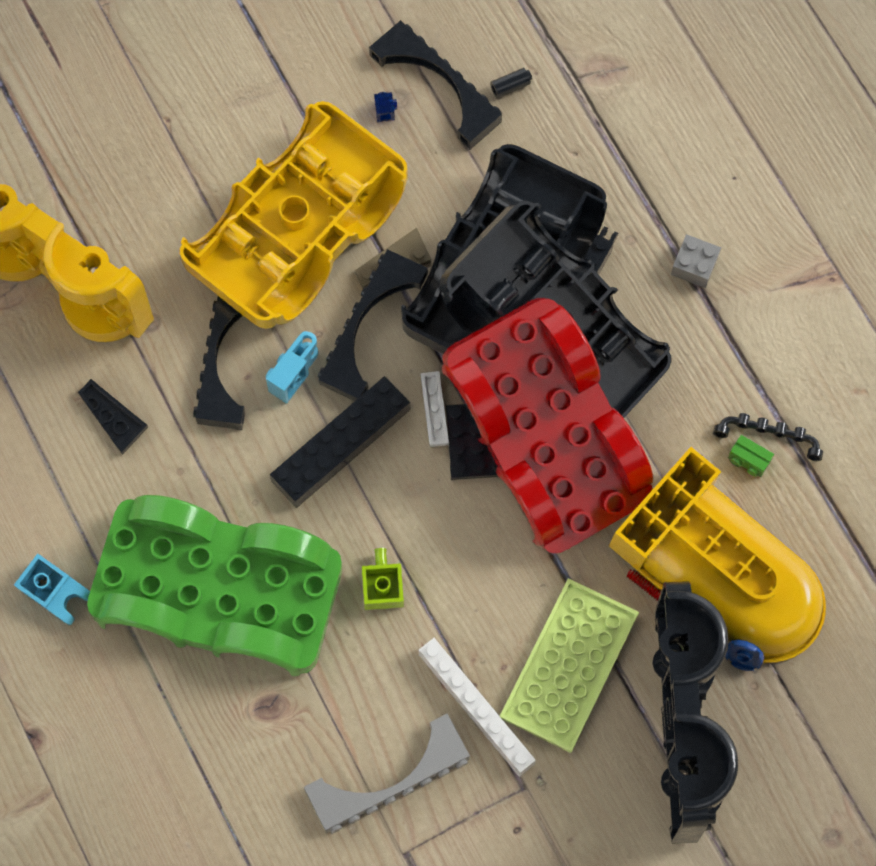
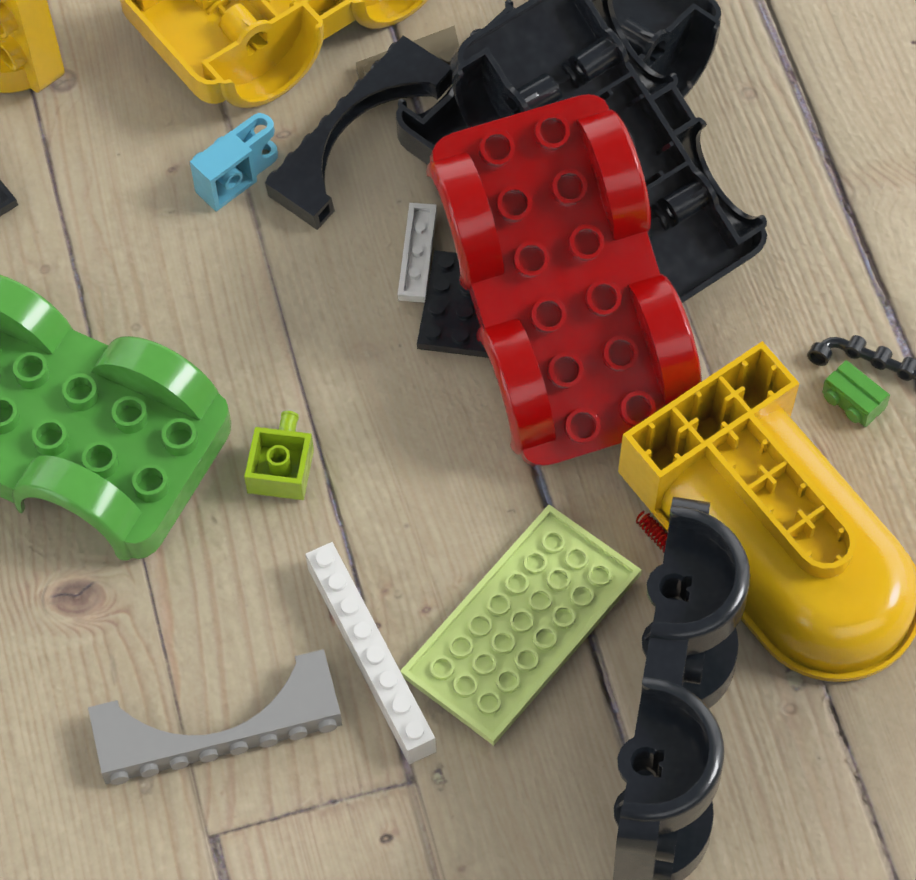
camera: 15 degrees right, 10 degrees down
(214, 403) = (115, 189): black arch -> none
(340, 442) = (273, 268): black brick -> none
(601, 249) = (704, 92): black hinge -> none
(695, 261) = (833, 130): light grey brick -> none
(744, 655) = (783, 656): blue tile -> none

